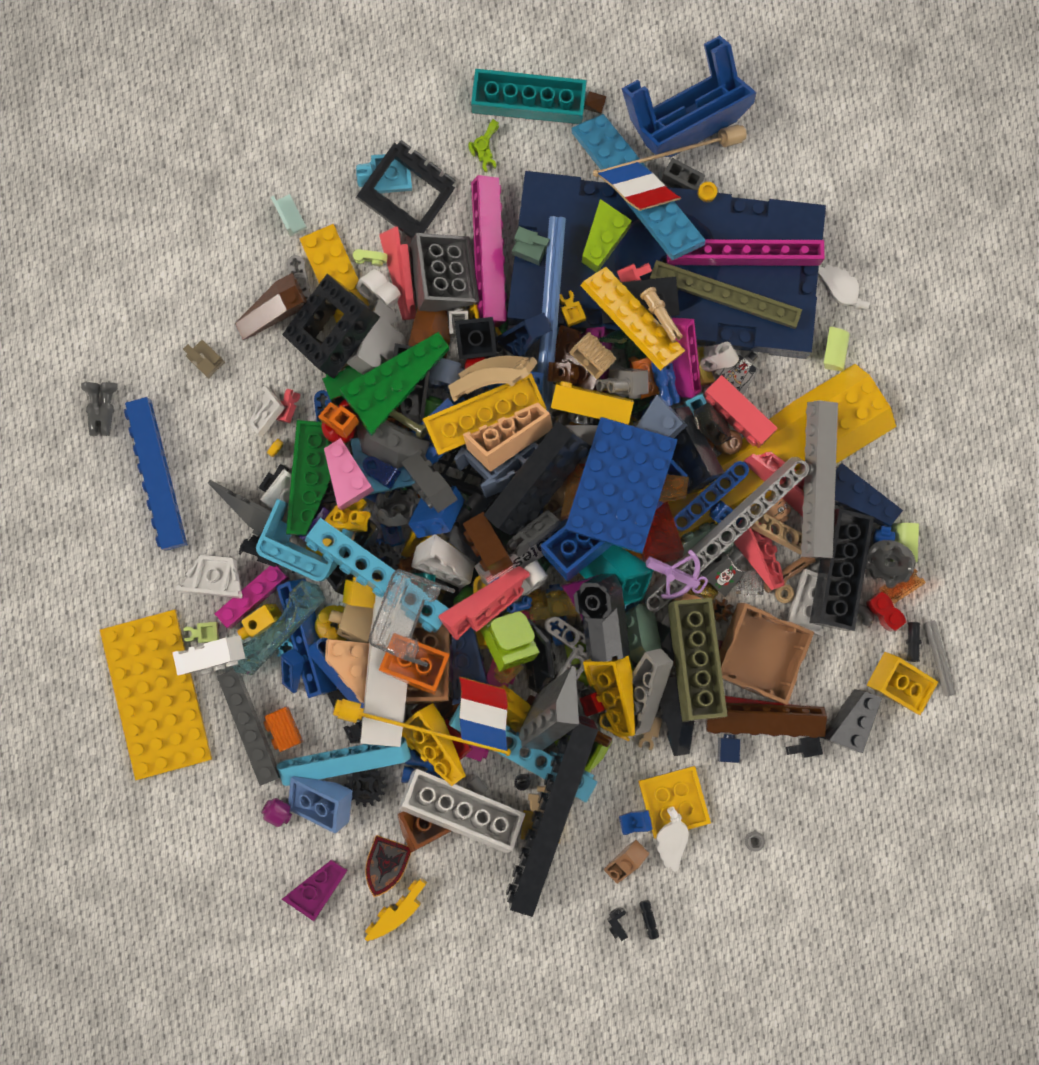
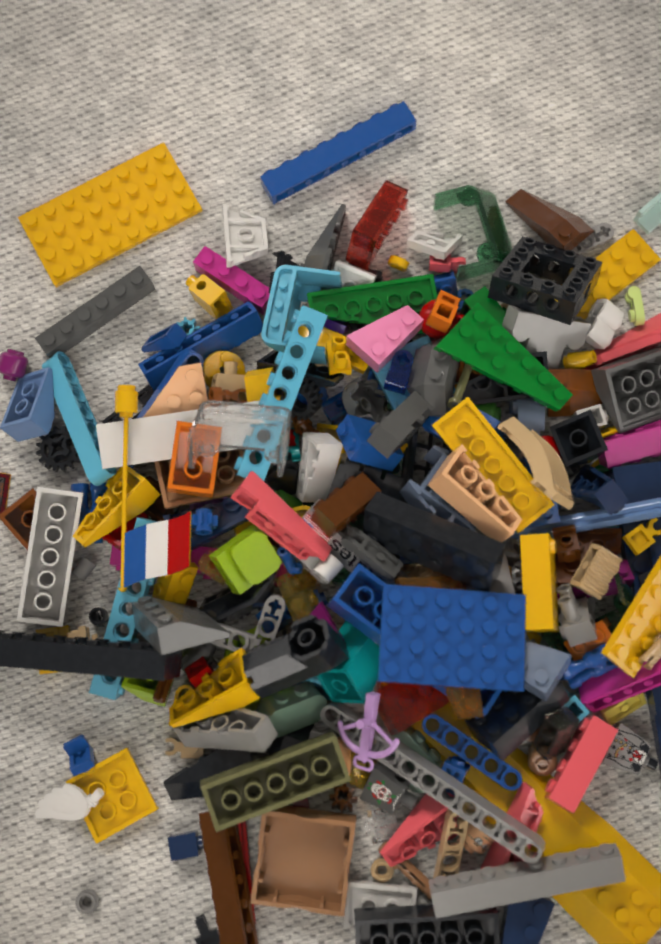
camera: 80 degrees right, 5 degrees down
(94, 411) = (385, 82): dark grey piece -> none
(204, 358) = (473, 166): dark tan piece -> none
(205, 632) = (184, 244): yellowish green plate -> none
(210, 656) = (157, 251): white wedge -> none
(236, 456) = (376, 224): none -> clear red wedge
(283, 729) = (101, 348): orange brick -> none
(288, 357) = (498, 244): none -> clear green windscreen
(301, 604) = (235, 327): clear light blue arch -> none
(306, 411) = (446, 282): none -> blue bracket
(360, 632) = (217, 394): none -> dark orange piece
(405, 318) = (579, 359): none -> yellow cone
(469, 668) = (204, 521): none -> blue gear
(626, 861) = (34, 756): medium nougat slope -> none
(719, 357) = (639, 723): white piece -> none

